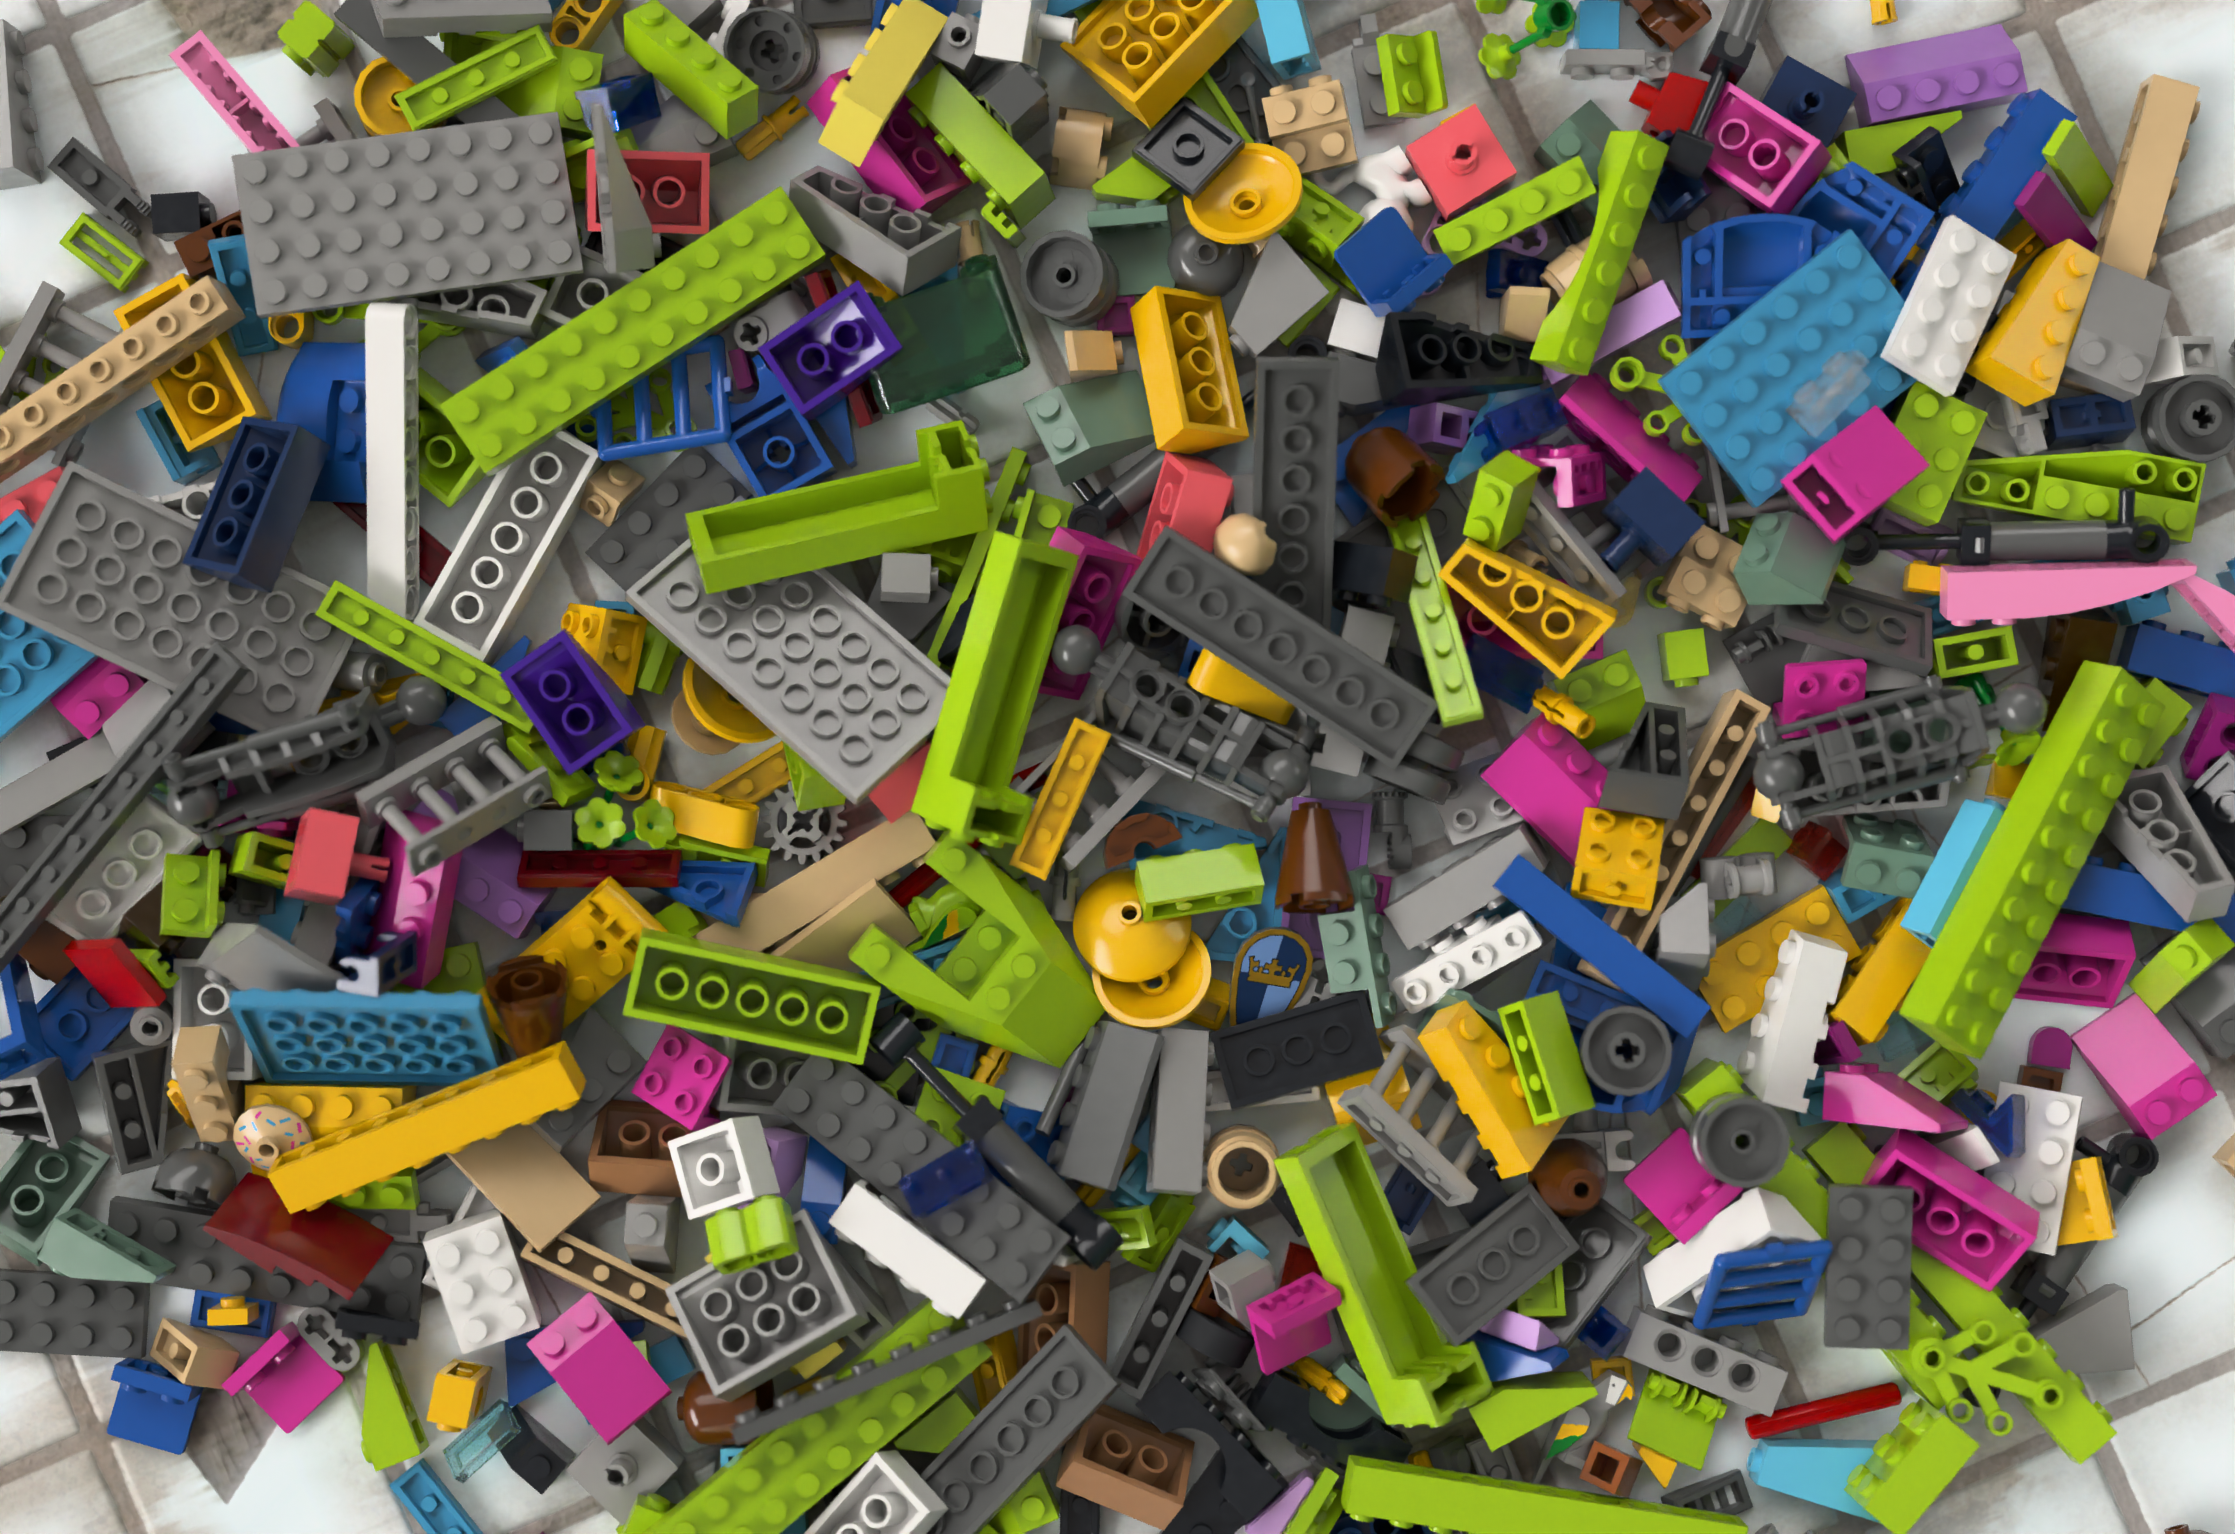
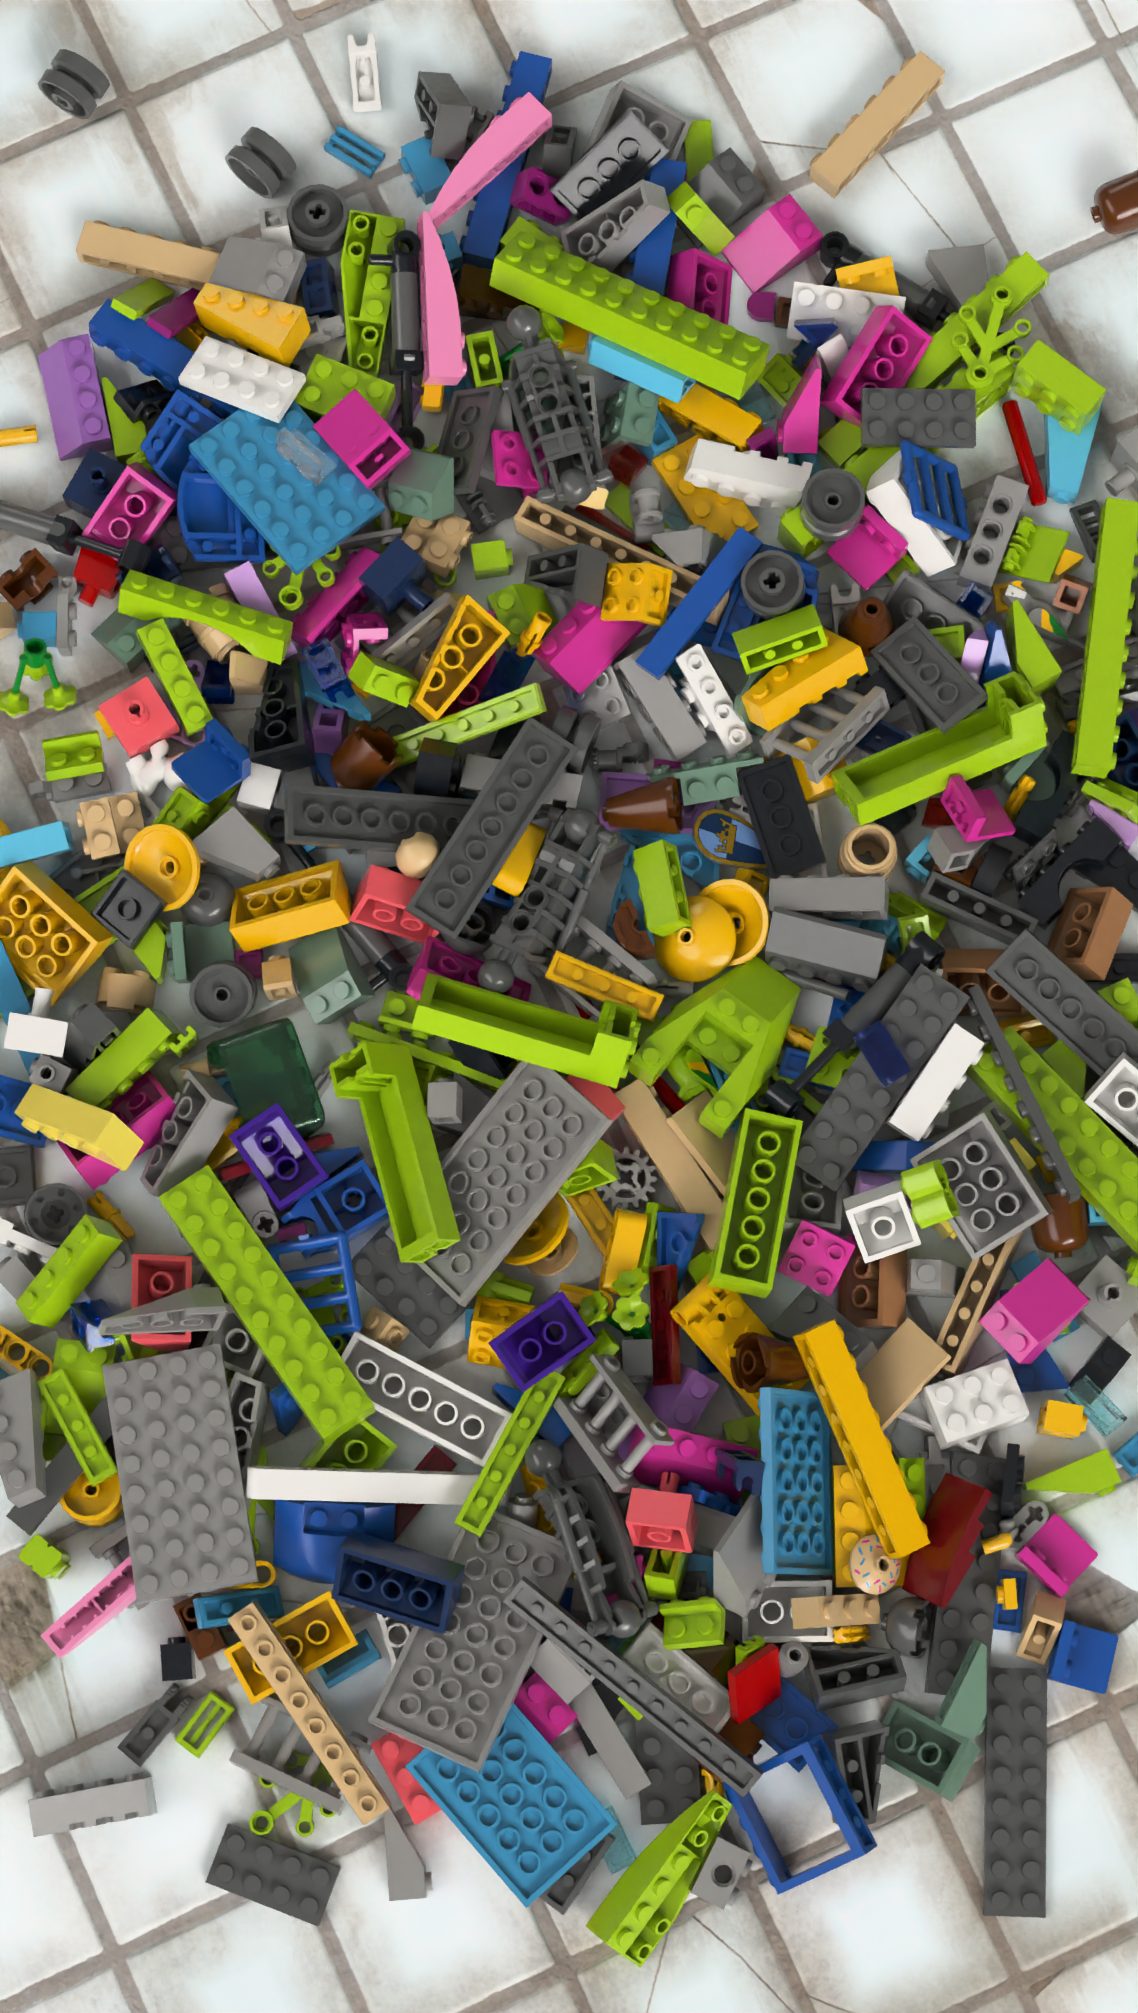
camera: 90 degrees left, 10 degrees down
(306, 1311) = (1003, 1539): none -> yellow arm

